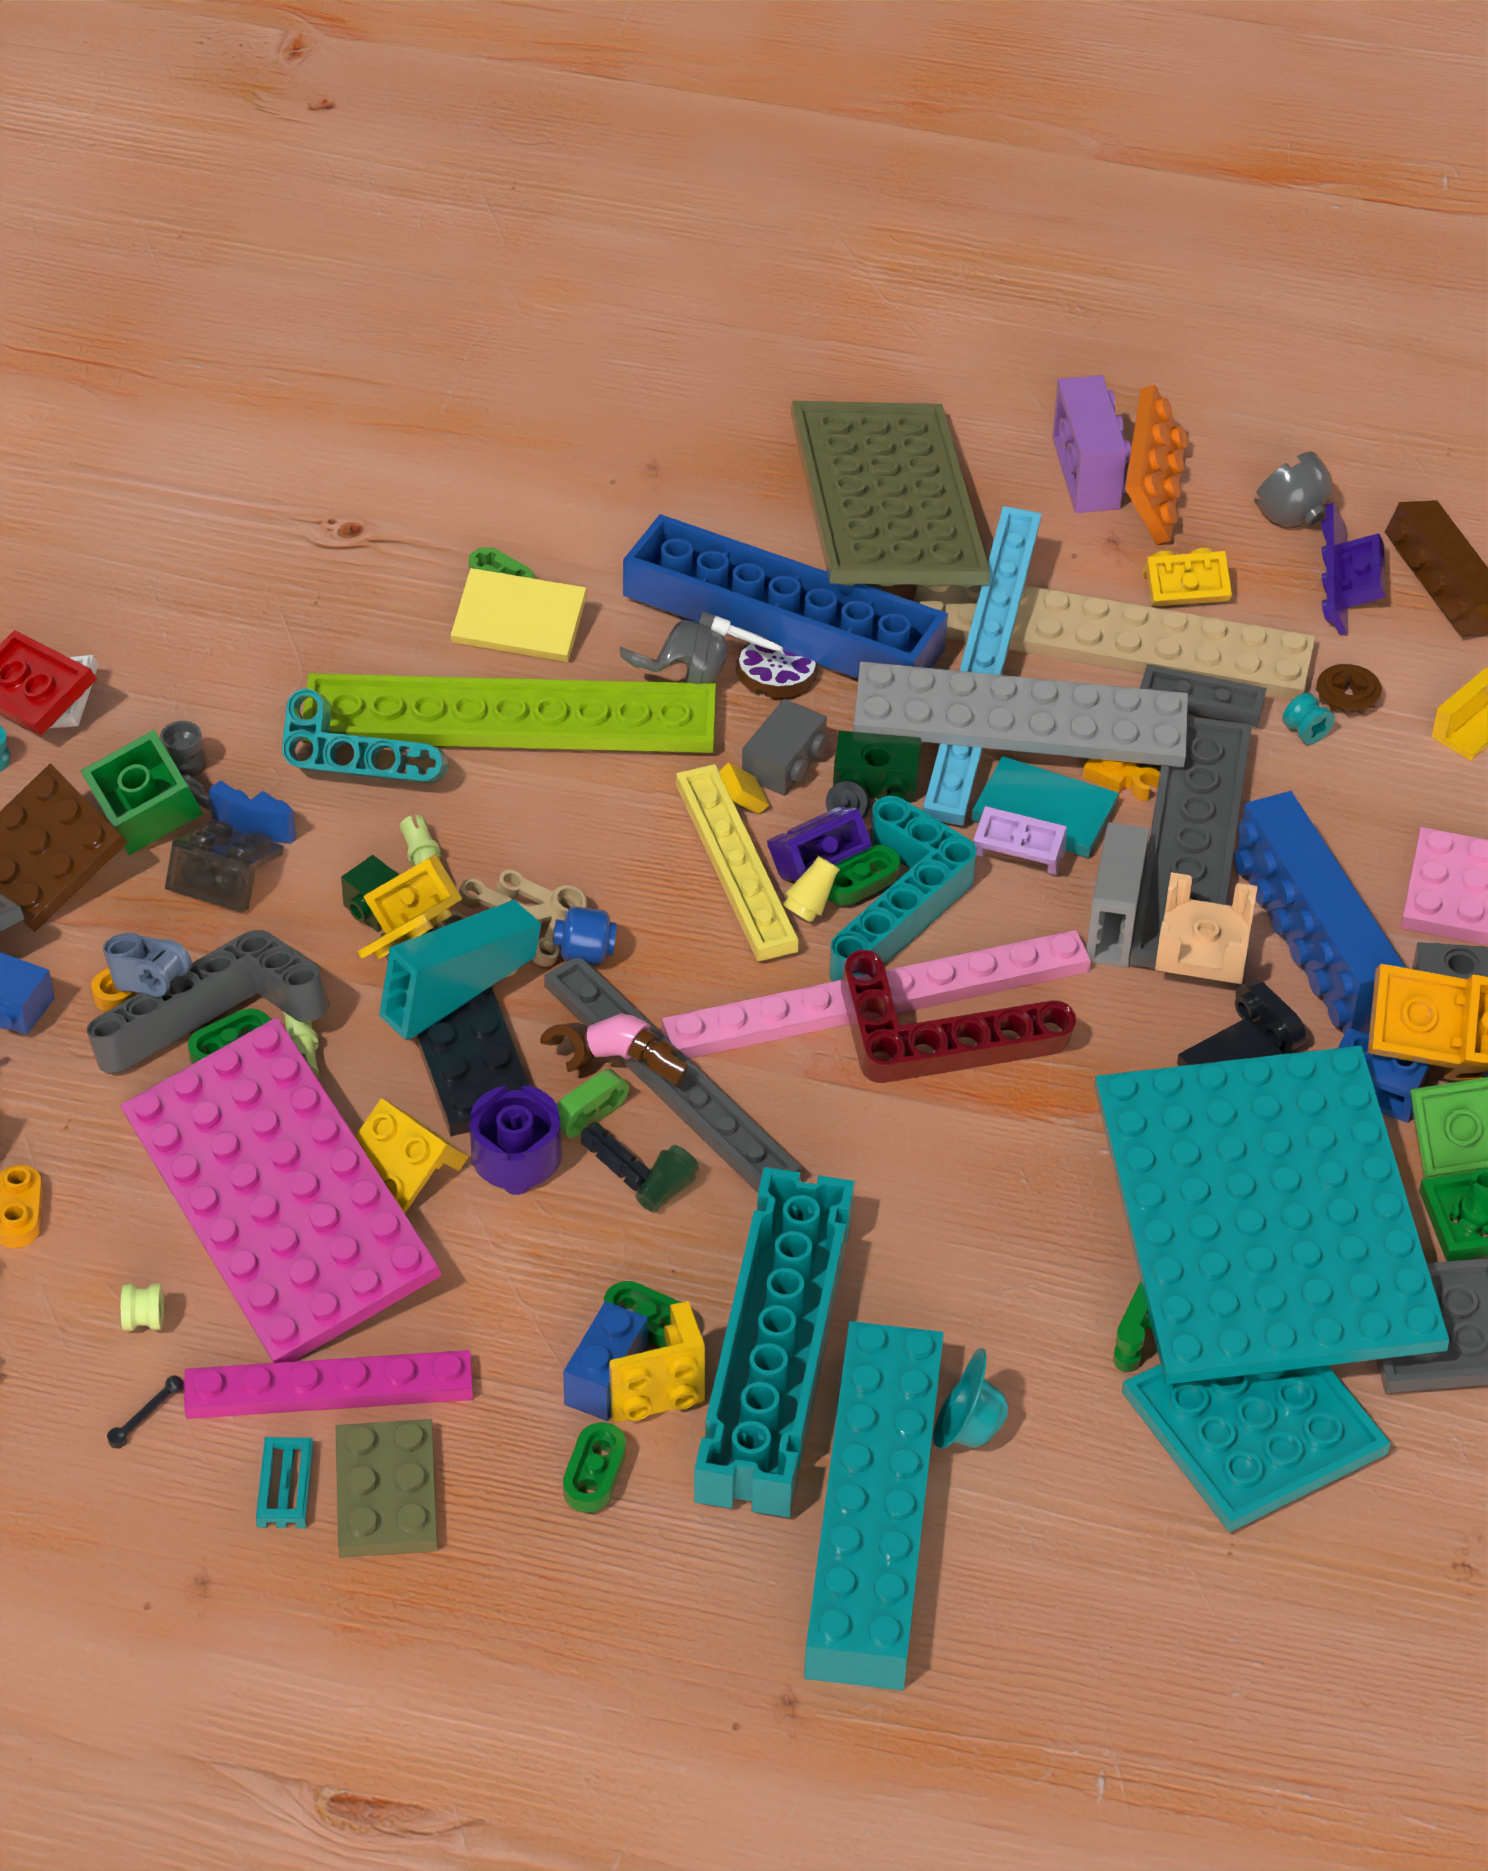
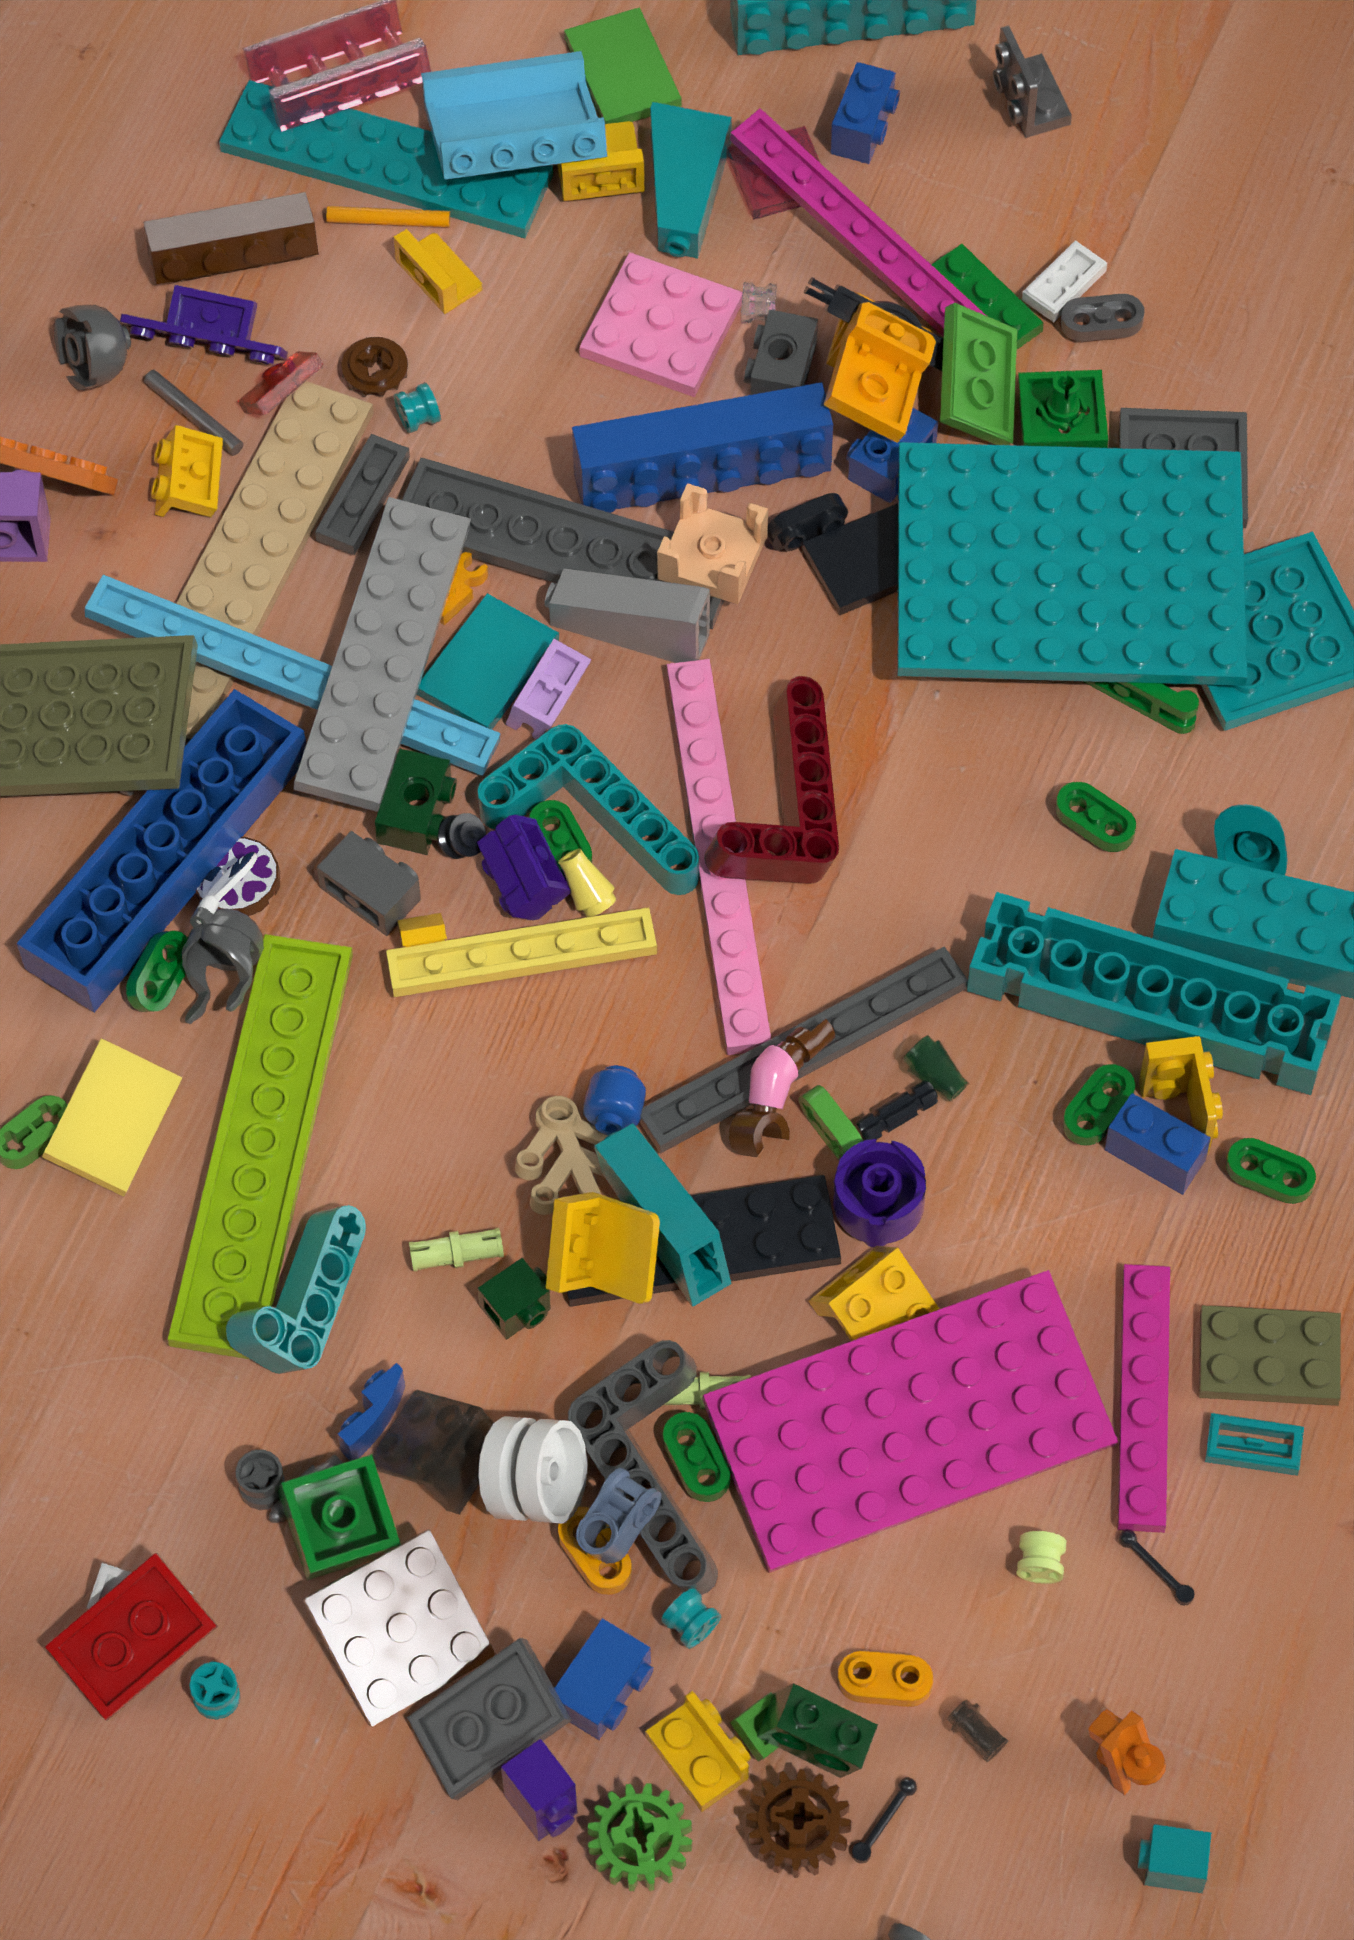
camera: 80 degrees left, 15 degrees up
(66, 1050) = (691, 1618): none -> teal wheel
(191, 902) = (533, 1469): none -> white wheel
(665, 616) = (159, 975): none -> green plate
(983, 1288) = (1098, 816): none -> green plate
(1258, 579) = (192, 411): none -> flat silver bar
(1304, 622) = (280, 382): none -> clear red plate

